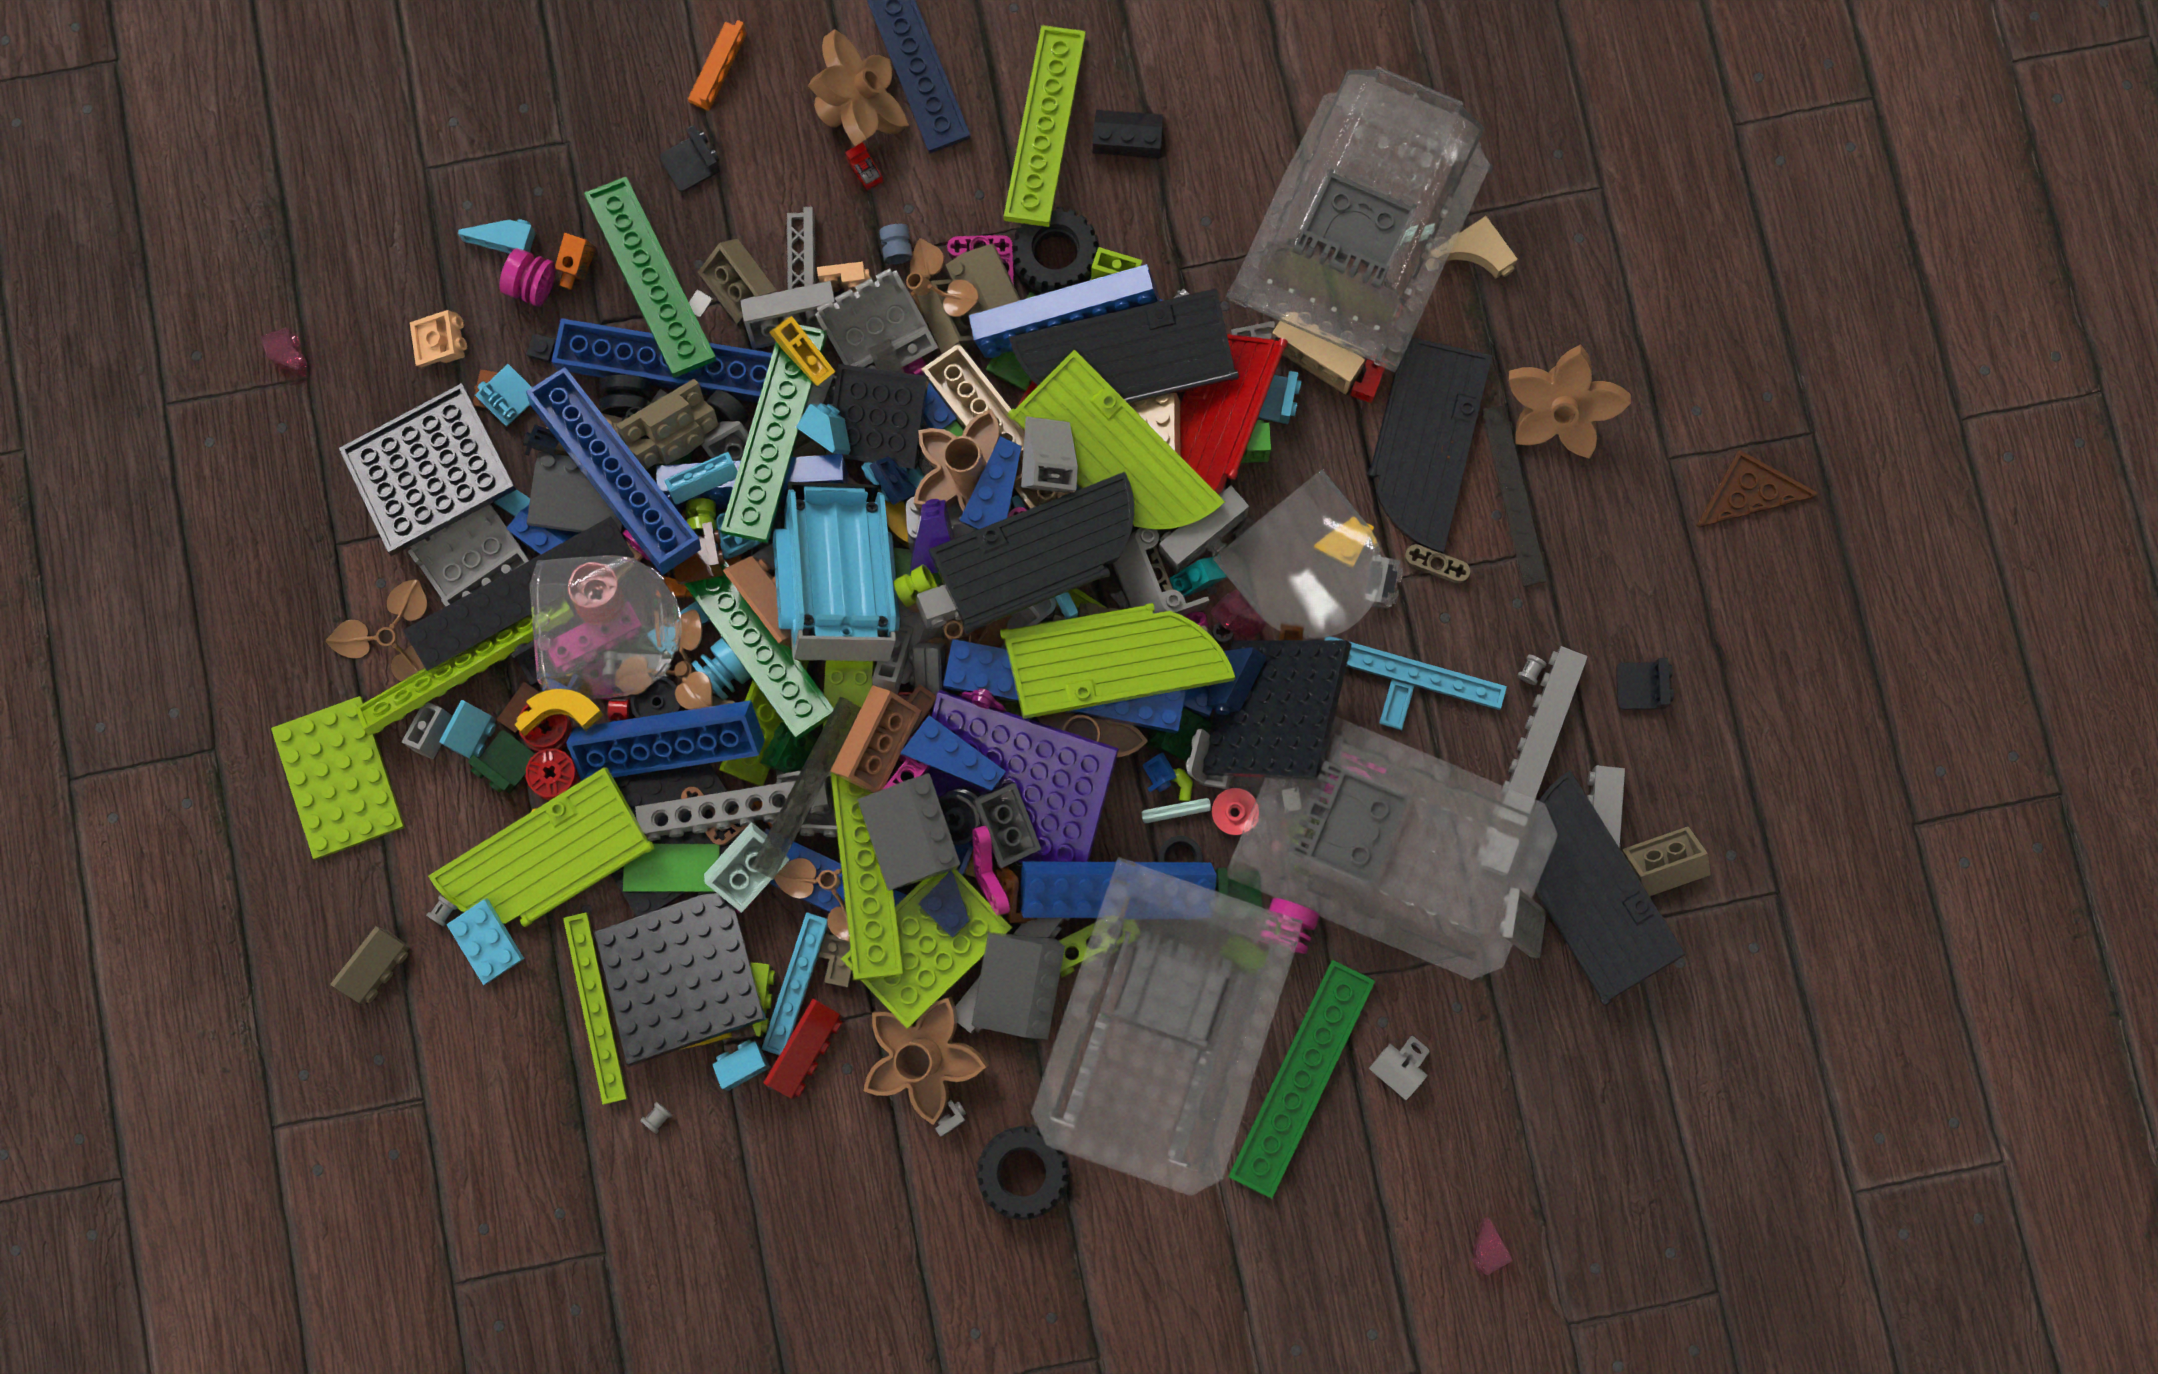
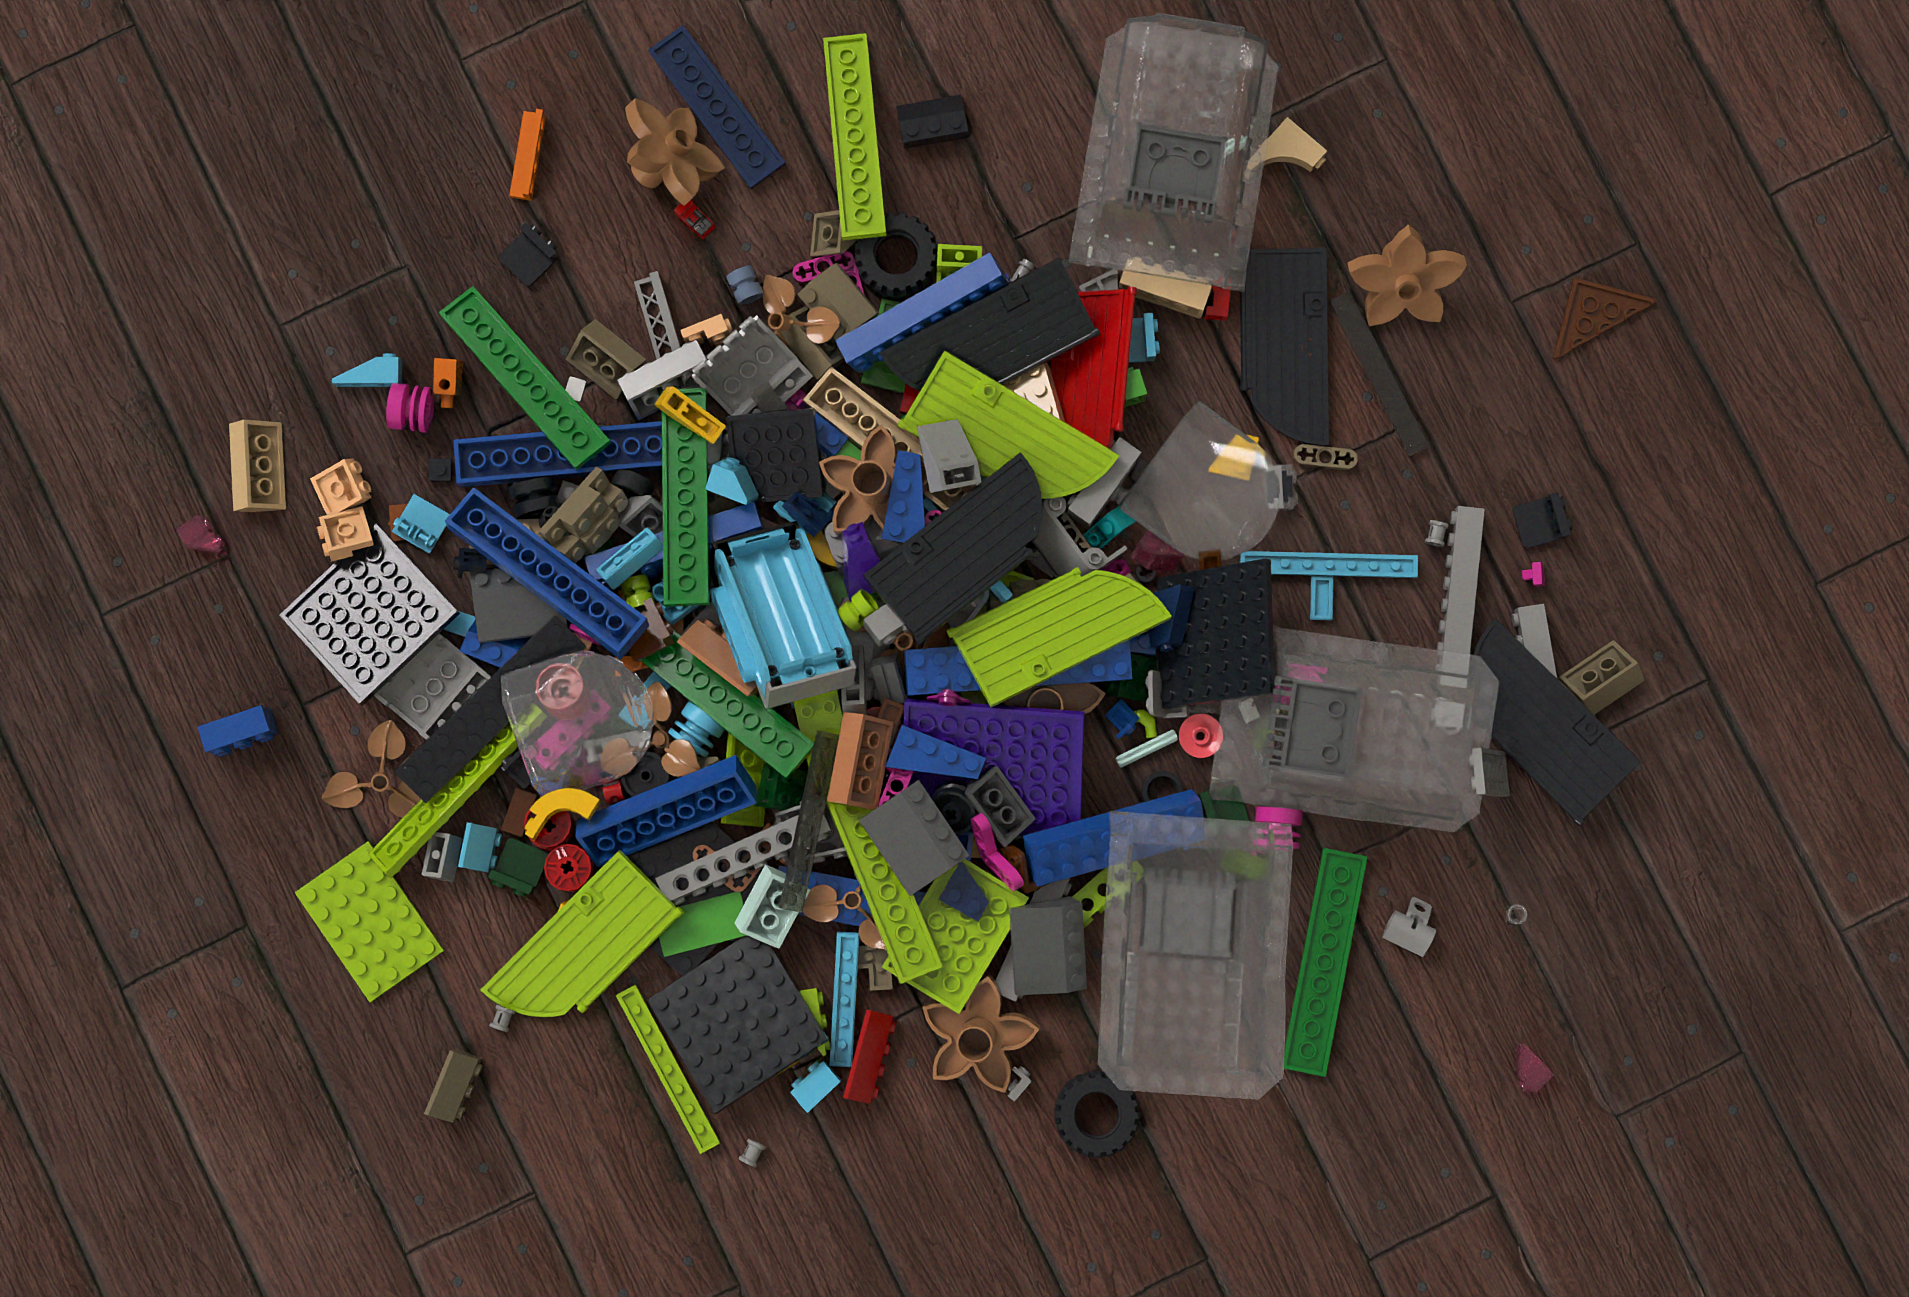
camera: 15 degrees left, 5 degrees up
(262, 550) = (238, 731): none -> blue brick
(361, 297) = (257, 466): none -> tan slope
(426, 383) = (344, 533): none -> light nougat plate
(485, 941) = (550, 1035): medium azure plate -> none
(991, 217) = (827, 235): none -> dark tan slope
(1513, 1090) = (1517, 907): none -> clear bush
(1623, 737) = (1536, 574): none -> dark pink tile

